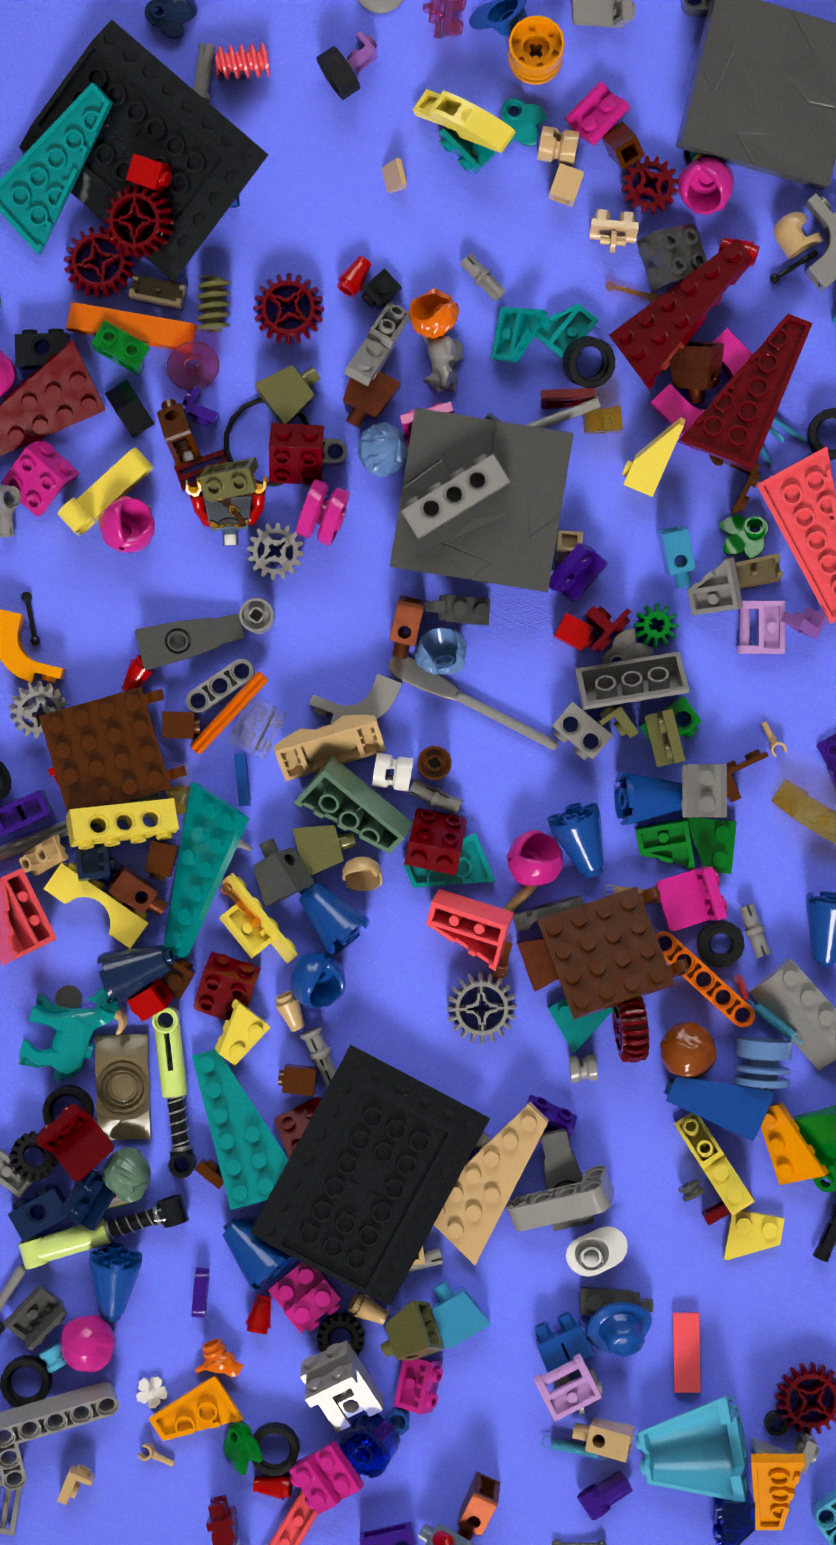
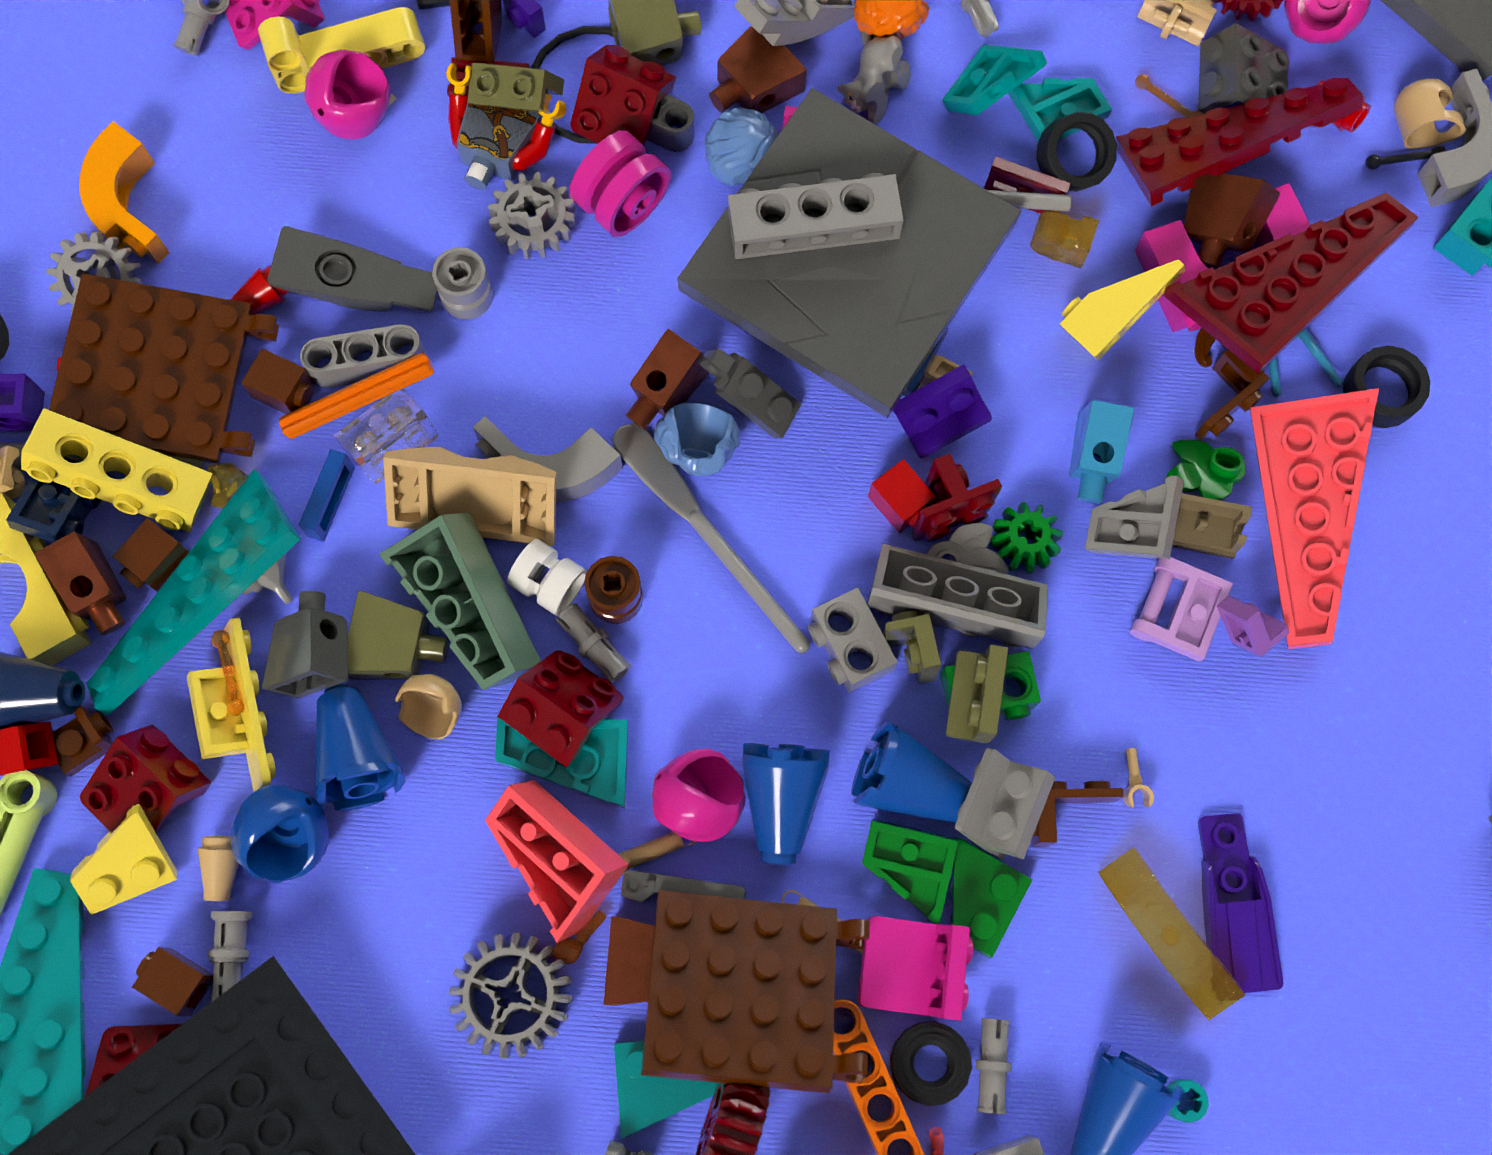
camera: 25 degrees right, 15 degrees down
(27, 597) = (169, 140): black hinge -> none

